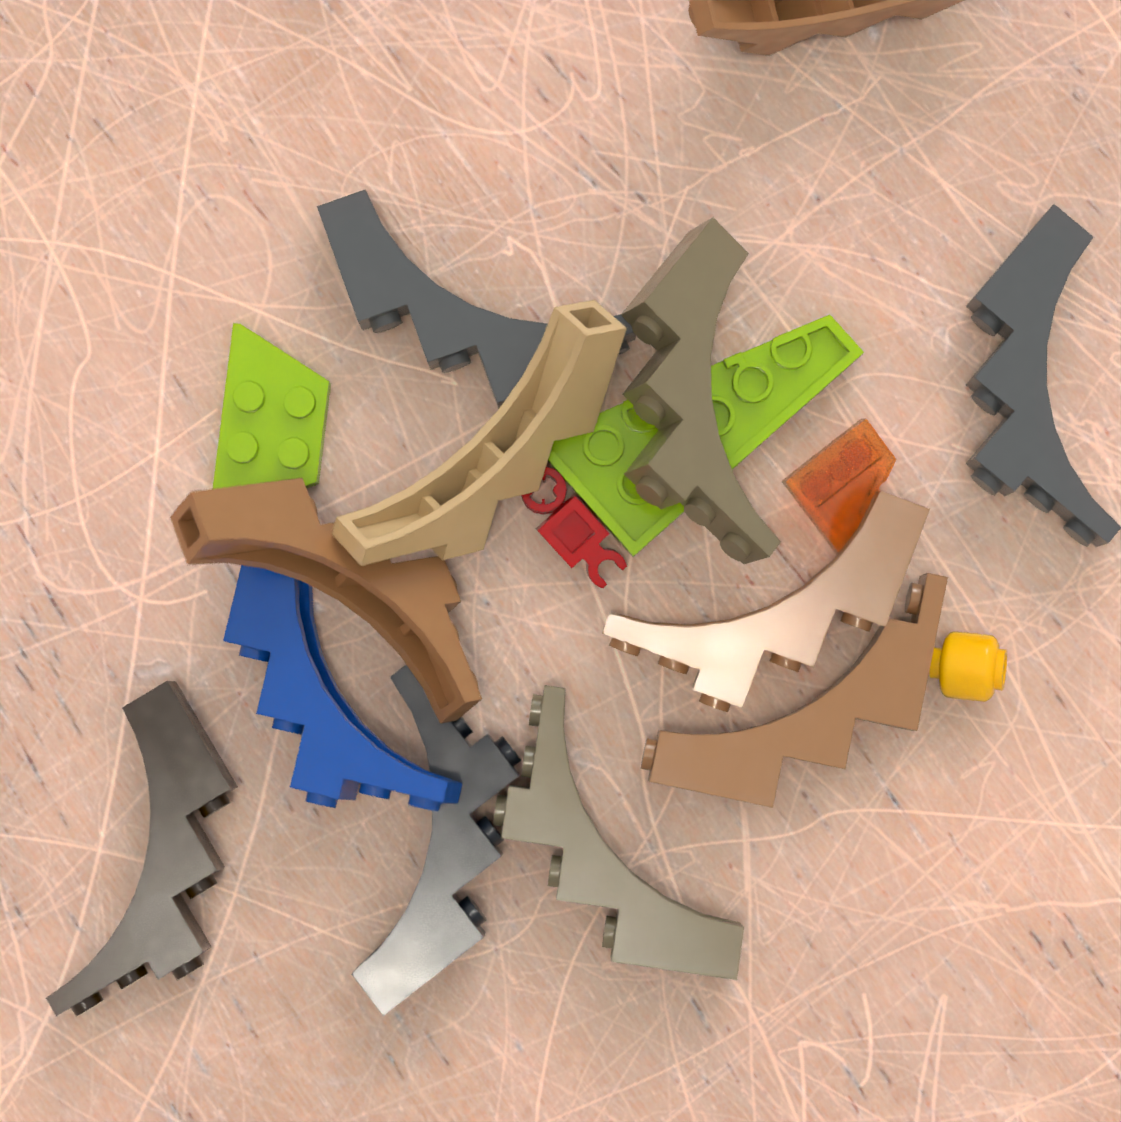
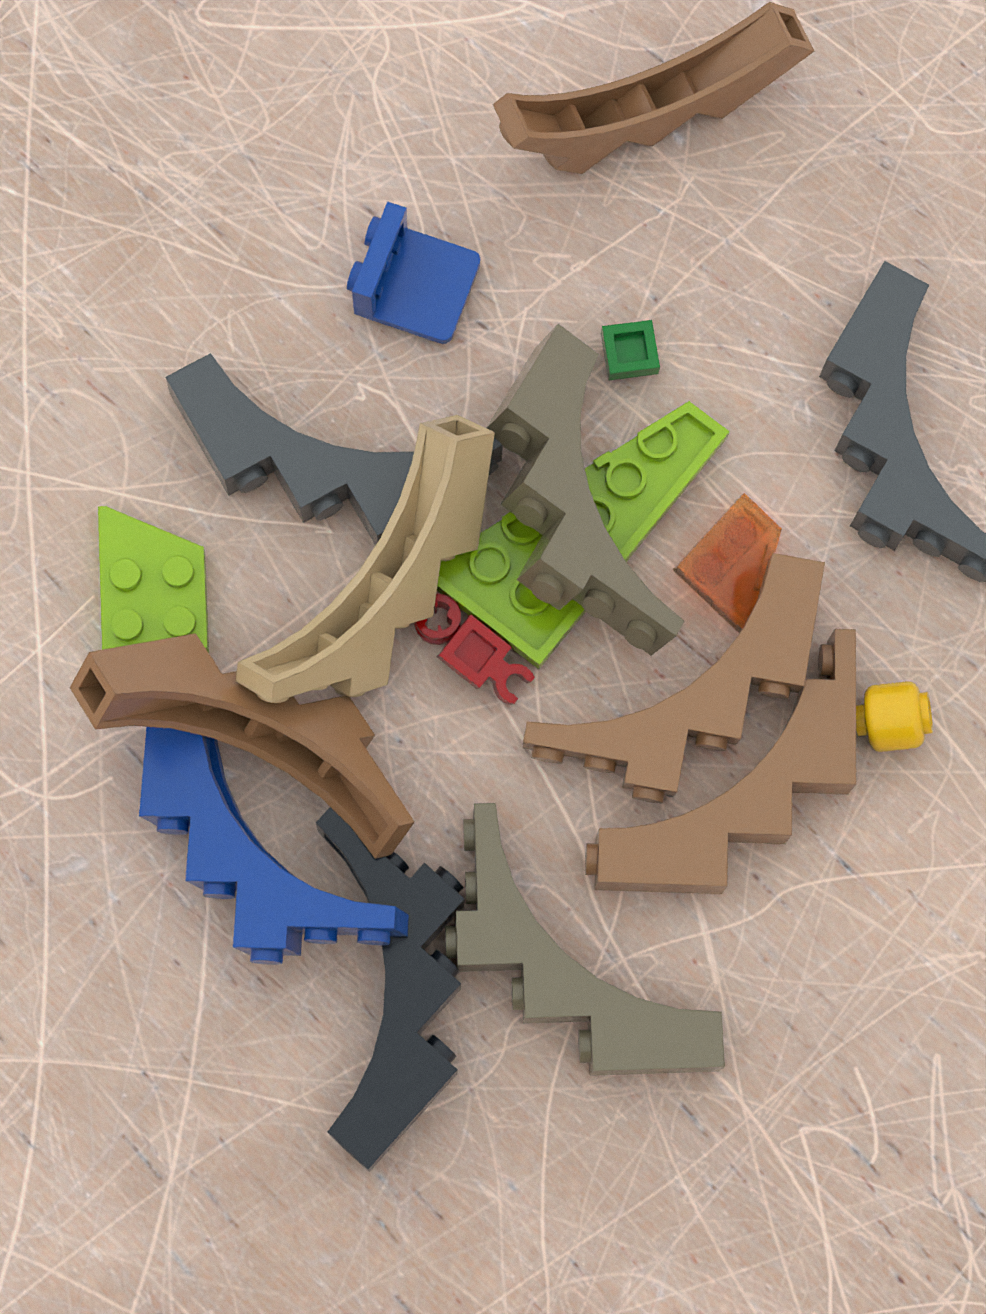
camera: 20 degrees left, 10 degrees down
(158, 925) = (127, 1052): arch -> none
(579, 140) = (412, 278): none -> blue bracket
(782, 250) = (630, 350): none -> green plate

